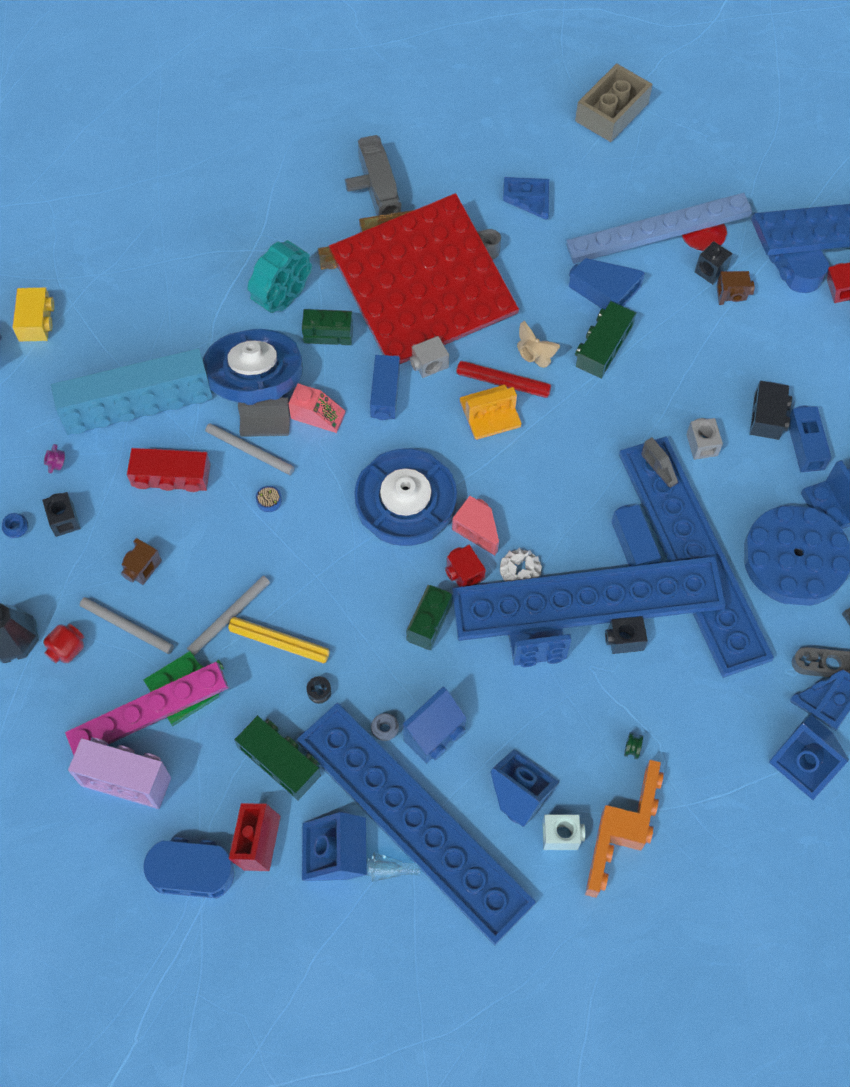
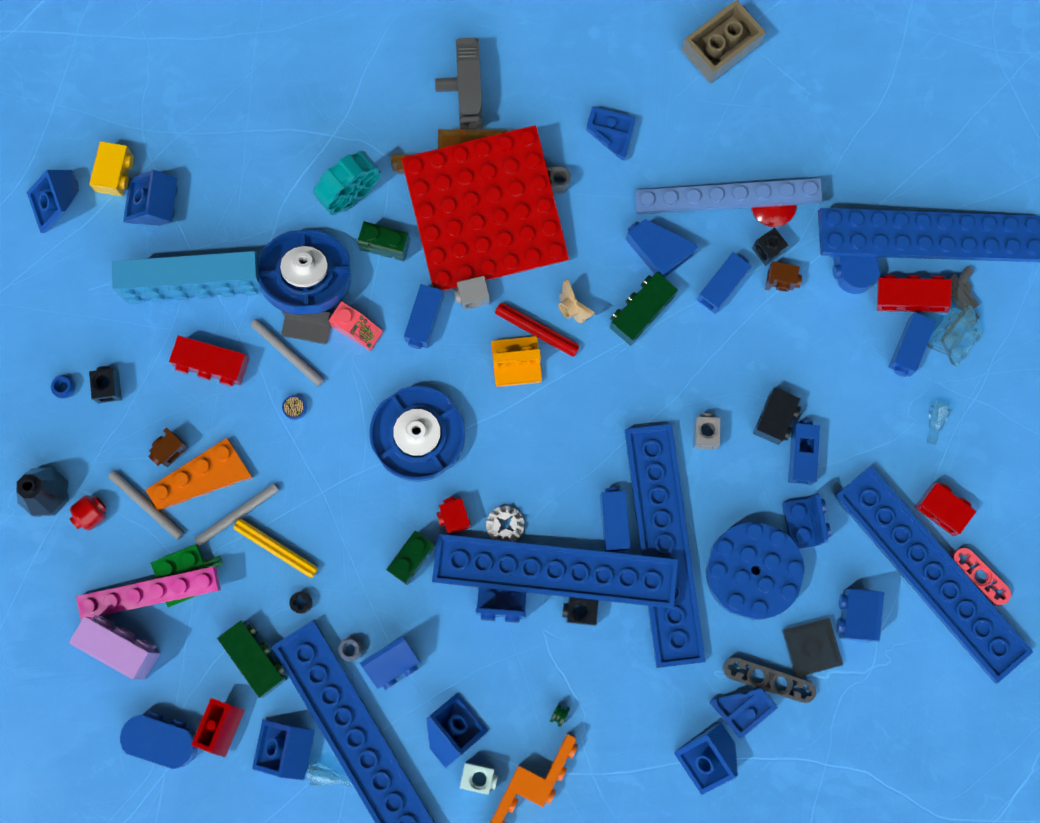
camera: 10 degrees right, 15 degrees up
(54, 459) = (107, 327): magenta plate -> none
(78, 333) = (150, 199): none -> blue slope
(187, 579) = (208, 472): none -> orange wing
(477, 524) = (475, 474): coral slope -> none
(659, 462) = (655, 453): dark grey tile -> none
(678, 302) = (724, 282): none -> blue brick

